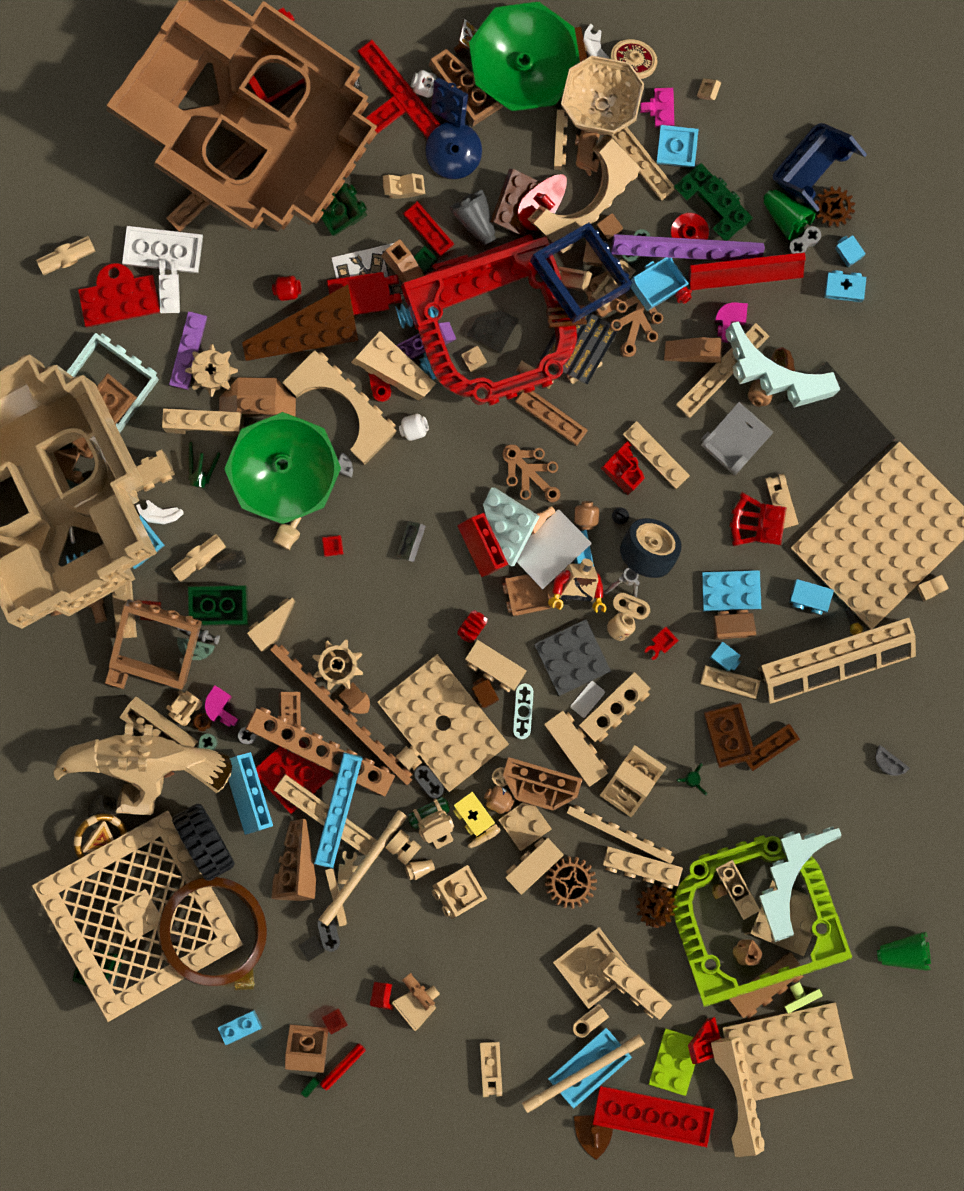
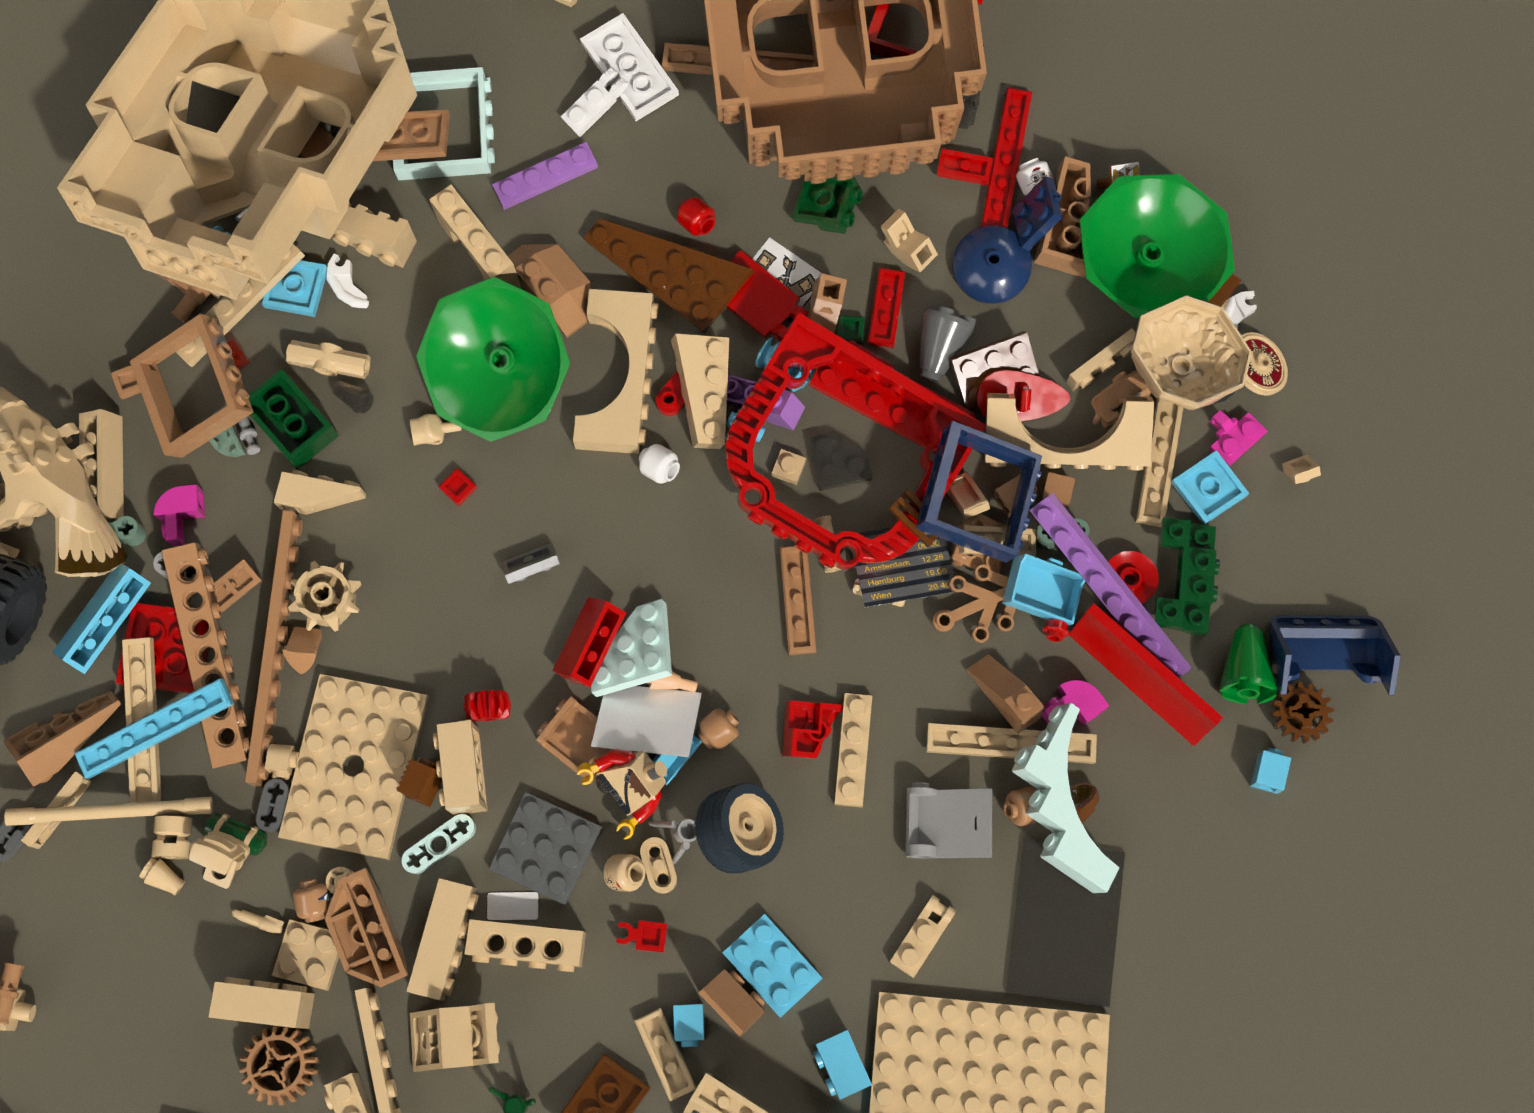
camera: 50 degrees right, 10 degrees down
(118, 297) = (541, 65): red plate -> none
(183, 707) = (148, 474): tan piece -> none
(197, 722) = (143, 504): reddish brown plate -> none
(198, 478) = (415, 290): dark green plant -> none
(216, 380) = (529, 206): tan brick -> none
(346, 465) = (556, 428): light grey tile -> none
(347, 869) = (100, 795): tan plate -> none
(458, 892) = (167, 944): tan plate -> none
(469, 803) = (273, 901): light yellow brick -> none
(529, 470) = (715, 625): medium nougat plant -> none
(620, 515) = (751, 767): black piece -> none
(769, 525) = (885, 943): red plate -> none
(804, 242) = (1234, 710): light grey axle -> none
(836, 291) = (1229, 815): medium azure brick -> none

